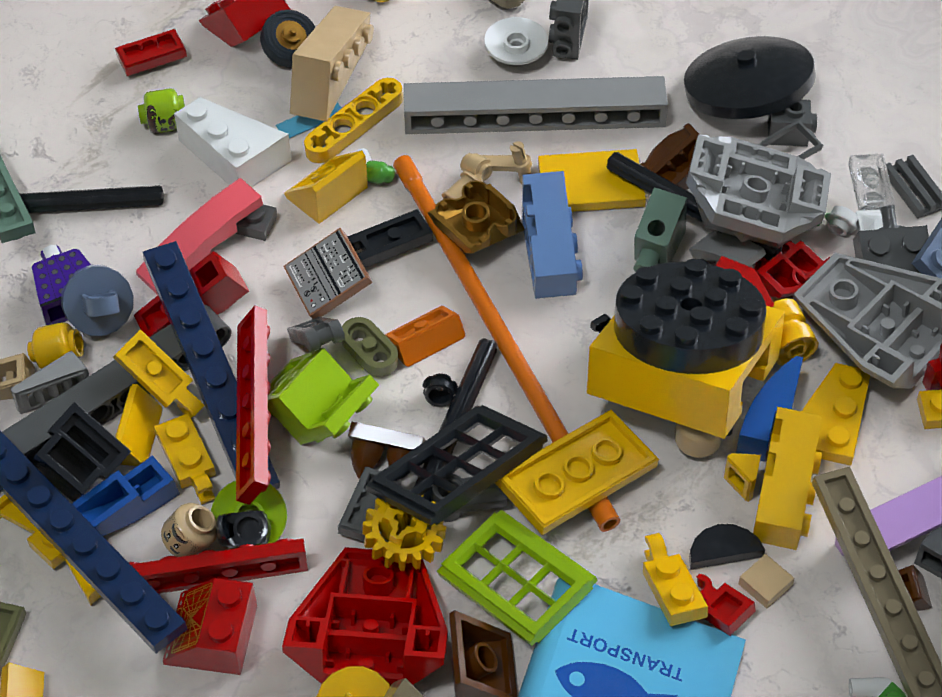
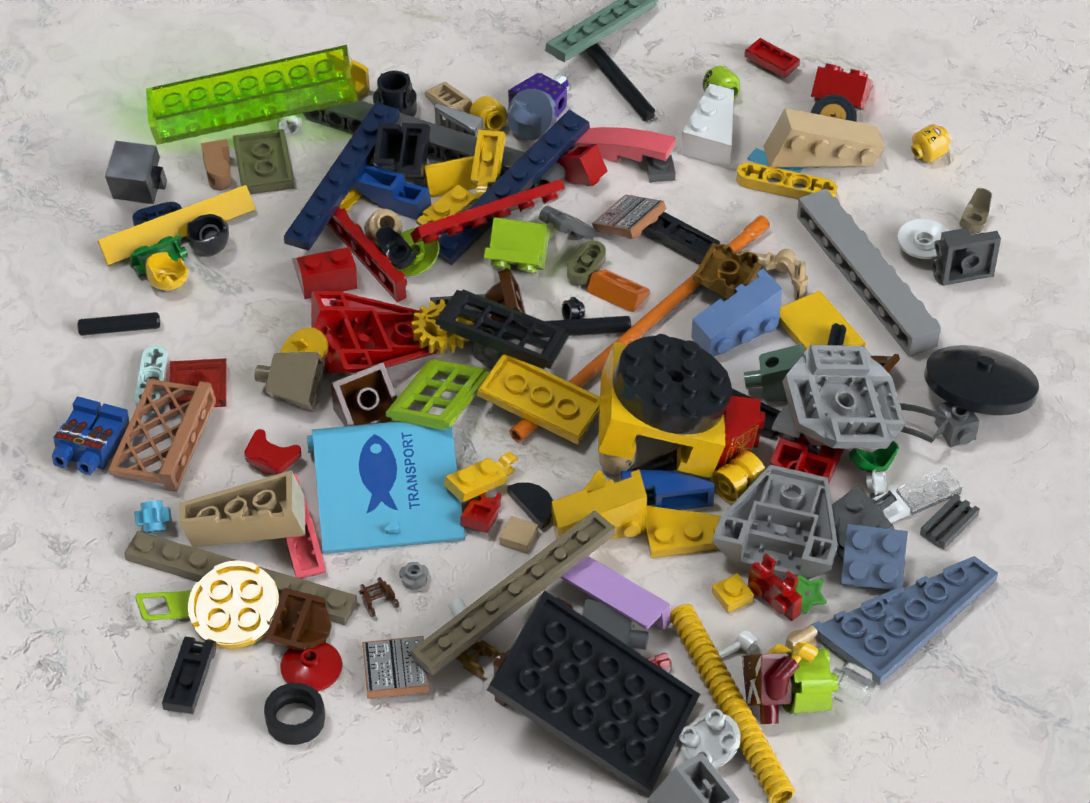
camera: 65 degrees right, 5 degrees down
(330, 186) = (711, 193): yellow slope -> none
(377, 171) = (744, 208): bright green arm -> none

